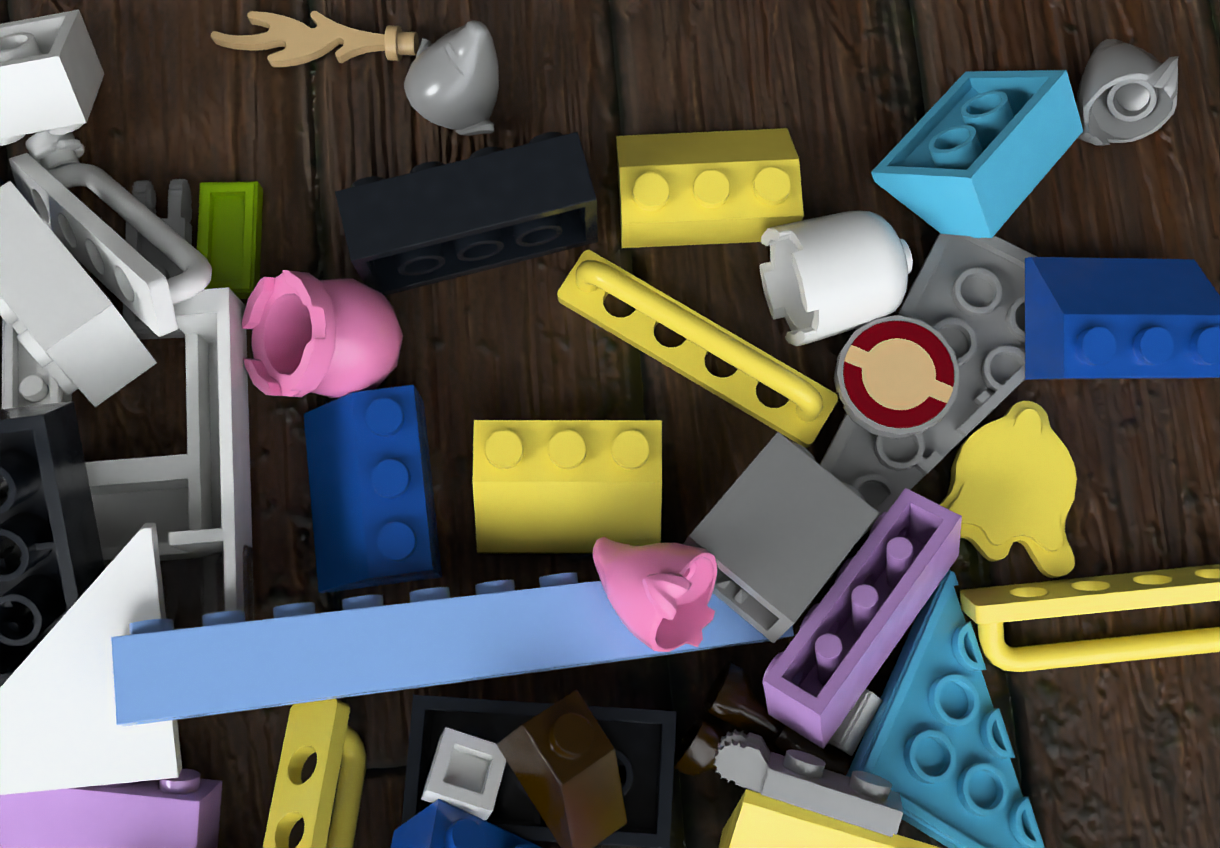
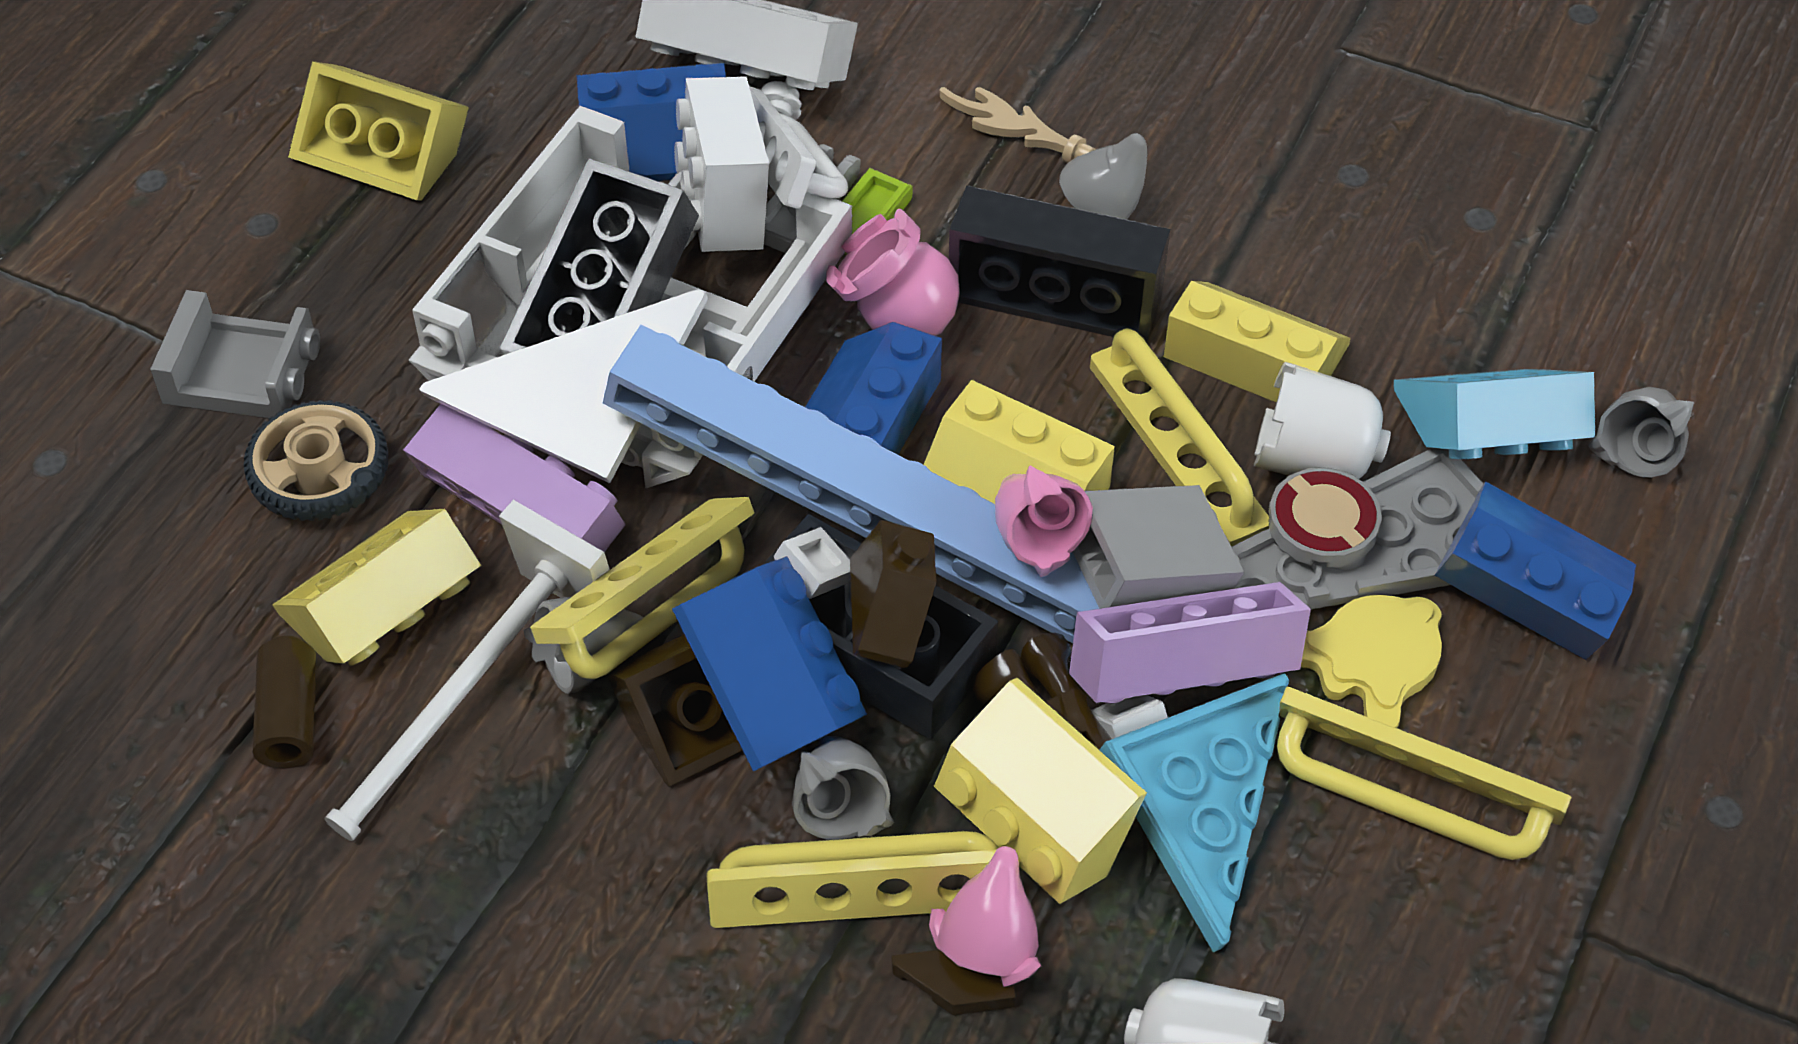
camera: 30 degrees right, 25 degrees down
(803, 782) = (1071, 703): light grey hinge -> none

